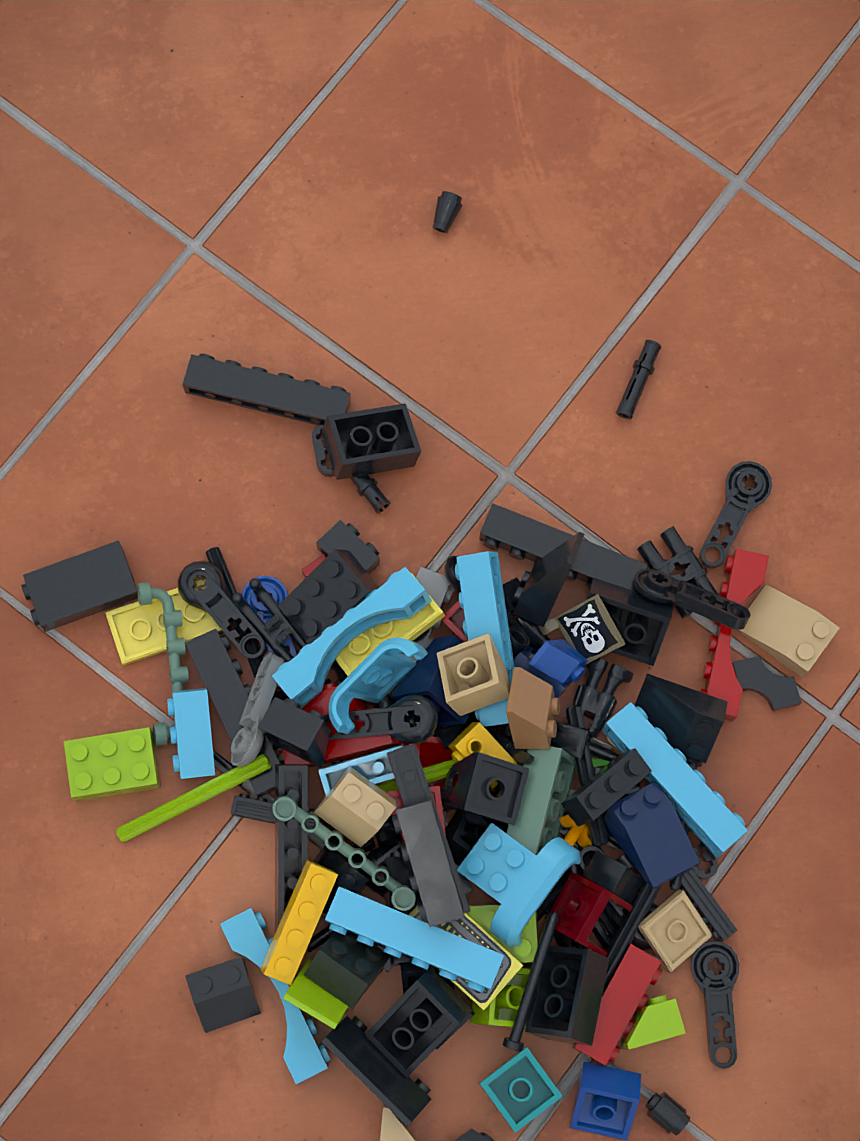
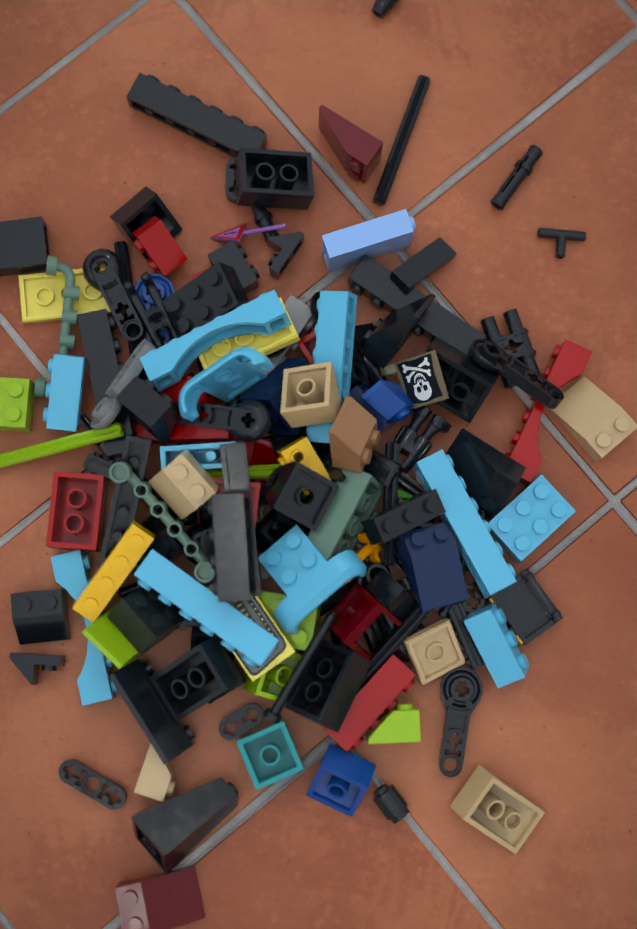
camera: 15 degrees right, 5 degrees up
(222, 1049) = (29, 664): none -> black slope
(236, 520) = (139, 211): none -> black slope
(237, 865) = (77, 511): none -> red brick
(259, 544) = (159, 246): none -> red brick
(341, 510) = (237, 232): none -> medium lavender piece
(401, 513) = (287, 247): none -> black slope
(449, 386) = (353, 147): none -> dark red slope
(482, 1066) = (245, 726): none -> black beam
(491, 485) = (368, 238): none -> light blue brick
(500, 367) = (401, 140): none -> black axle
(559, 500) = (423, 264): none -> black tile
(704, 434) = (561, 236): none -> black piece
(737, 506) = (576, 302): black beam -> none
(743, 907) = (497, 645): none -> medium azure brick
(745, 757) = (529, 519): none -> medium azure brick
(762, 860) = (526, 607): none -> black piece
(777, 690) = (555, 452): black tile -> none
(787, 1092) = (496, 809): none -> tan slope

